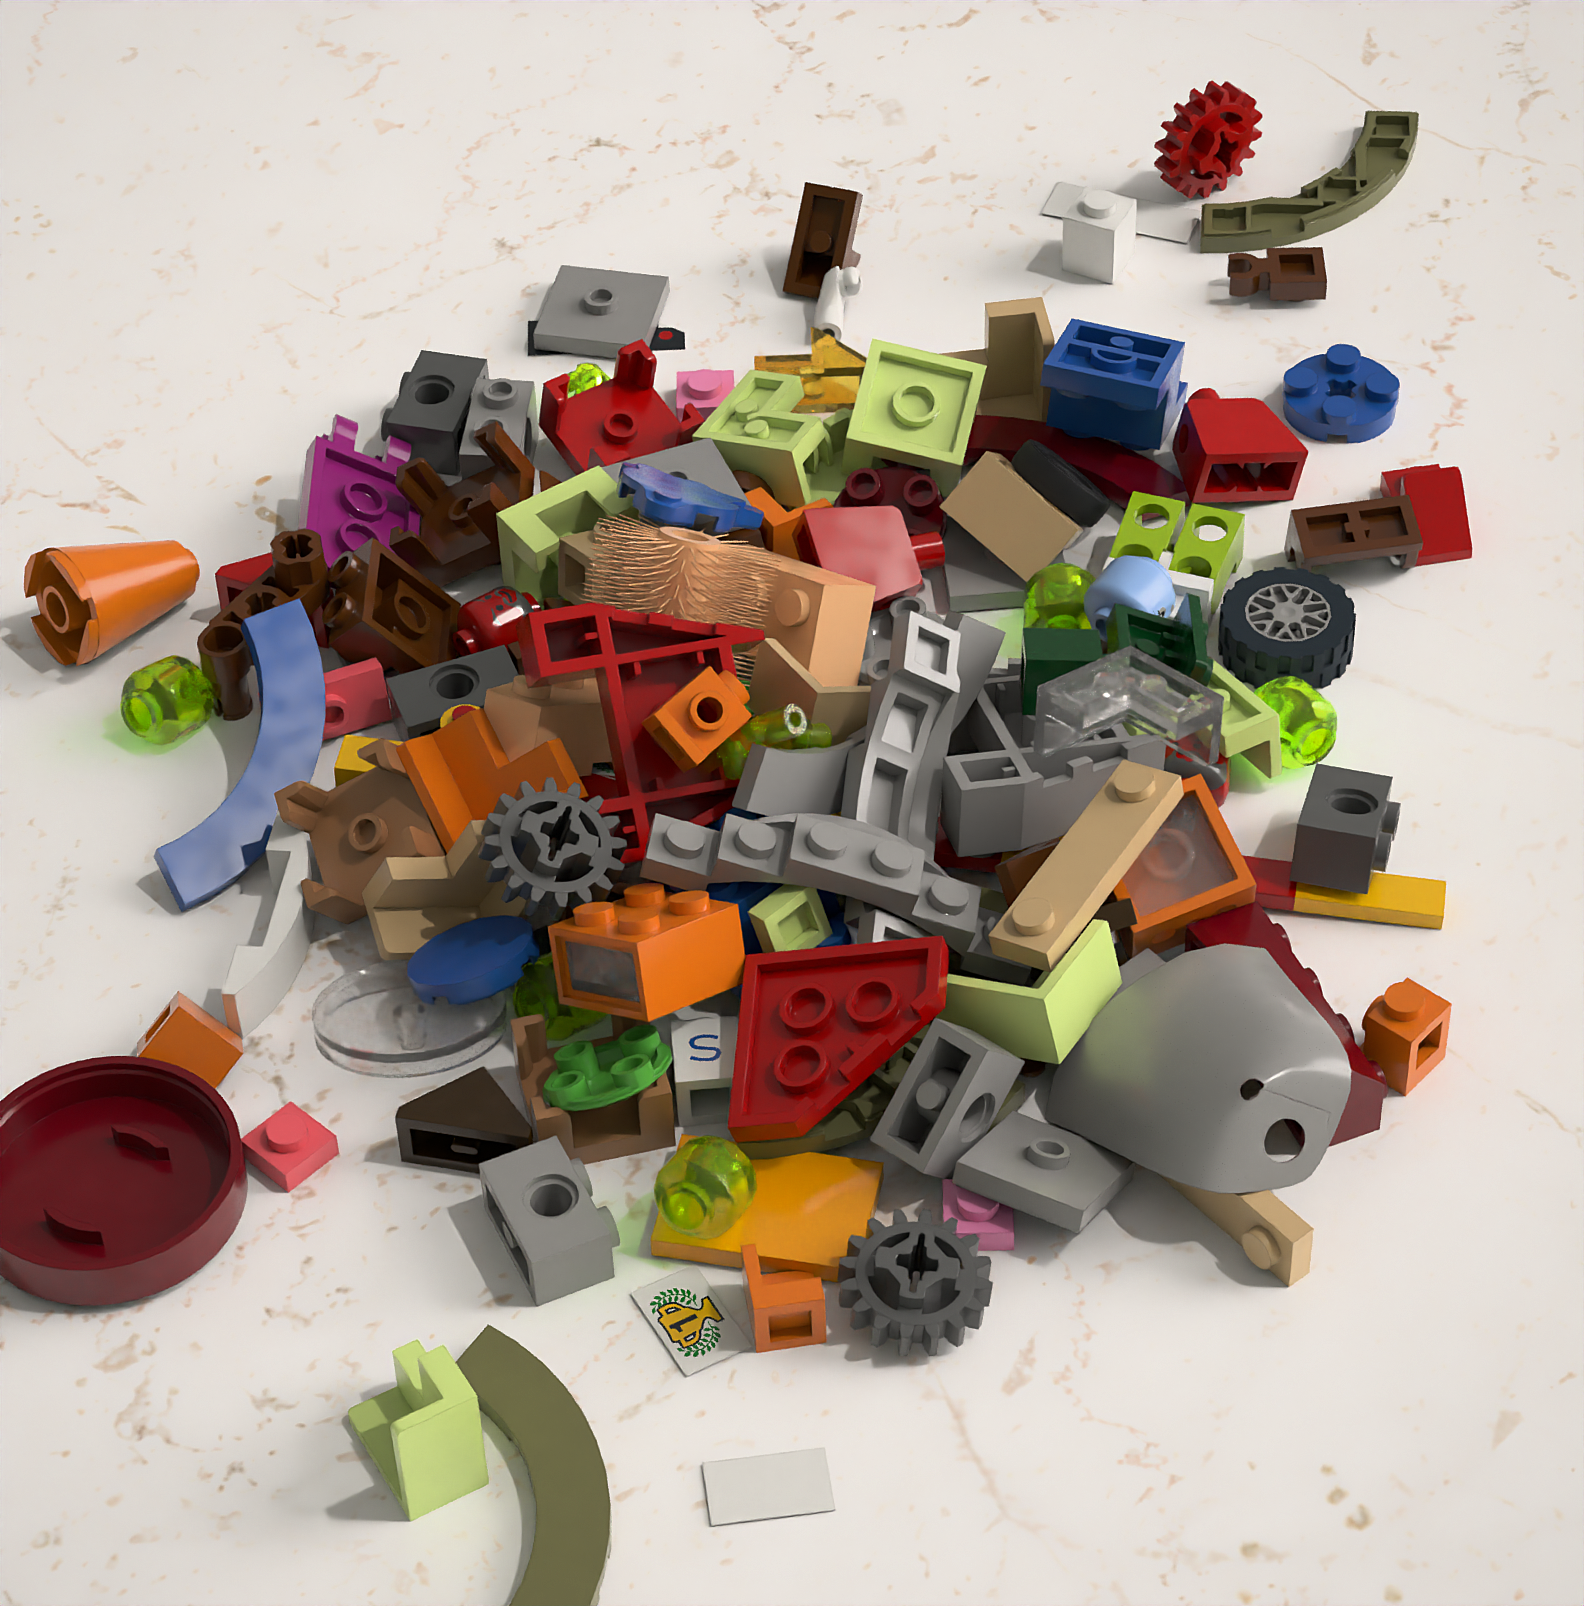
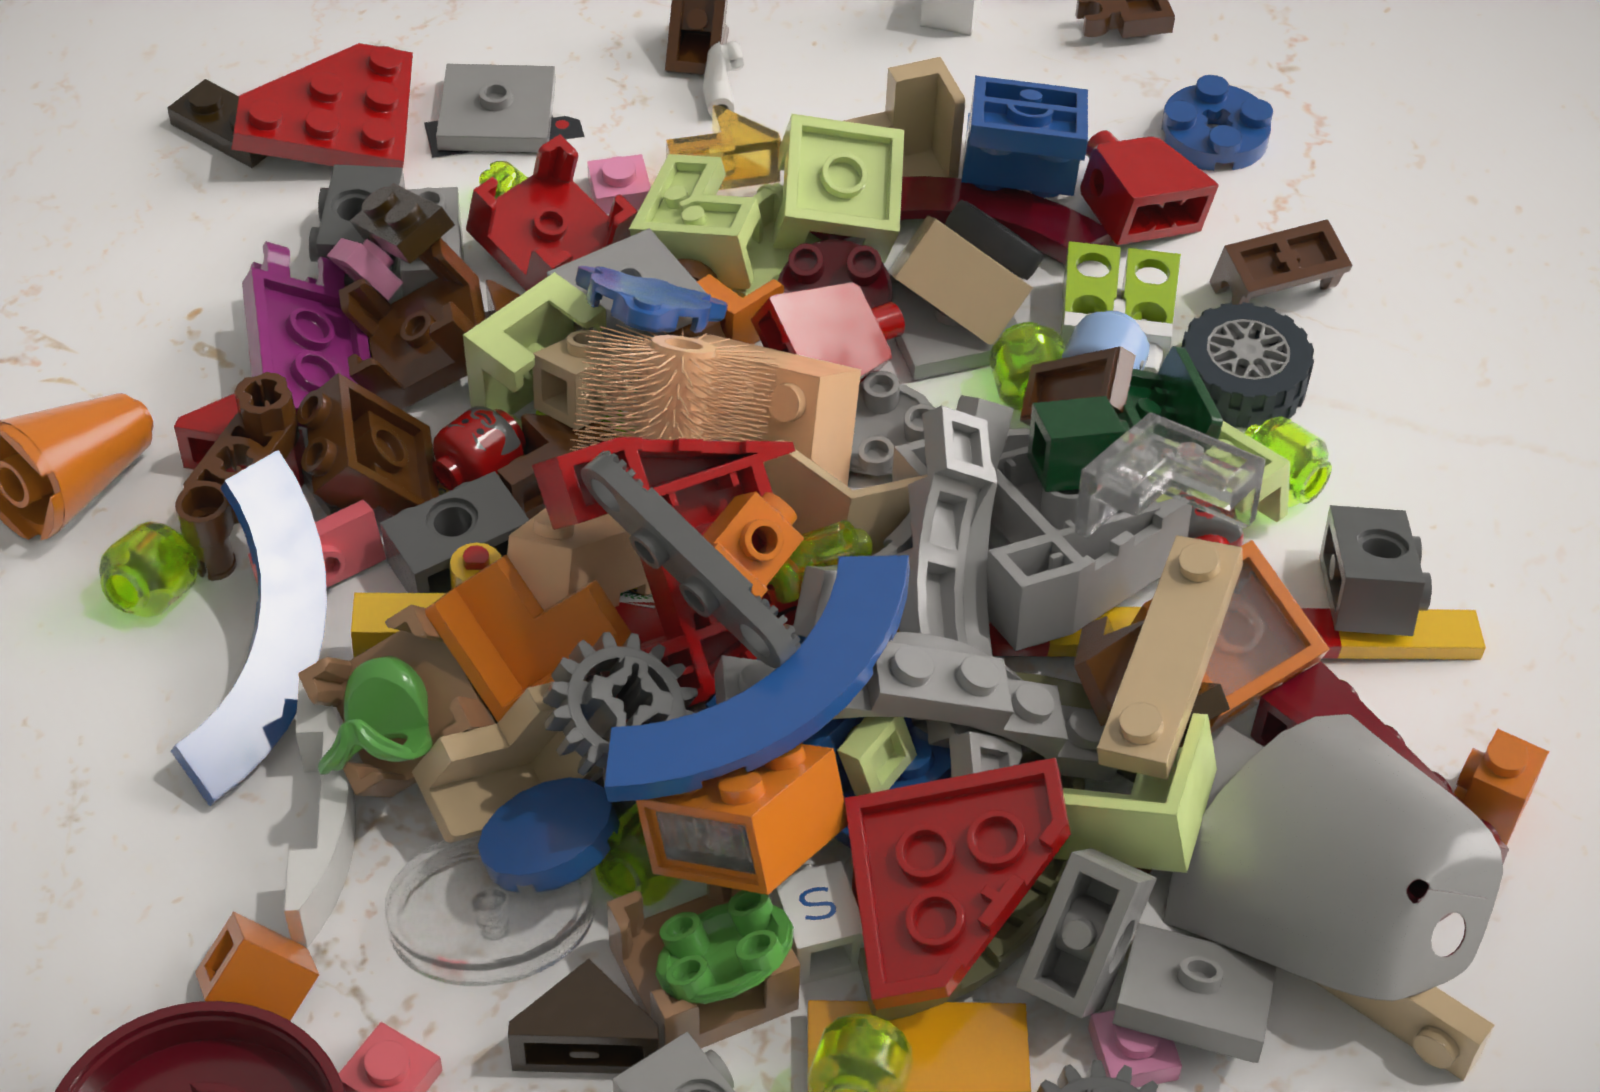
camera: 15 degrees left, 5 degrees up
(334, 304) = (210, 116): none -> dark brown plate
(344, 836) = (380, 704): none -> bright green piece
(431, 444) = (368, 263): none -> bright pink plate
(436, 300) = (332, 111): none -> red plate
(465, 406) = (401, 222): none -> dark brown plate
(643, 733) = (704, 574): none -> dark grey plate
(692, 858) = (780, 708): none -> blue tile
(1102, 610) = (1081, 376): none -> reddish brown tile
(1438, 508) = (1350, 217): red slope -> none

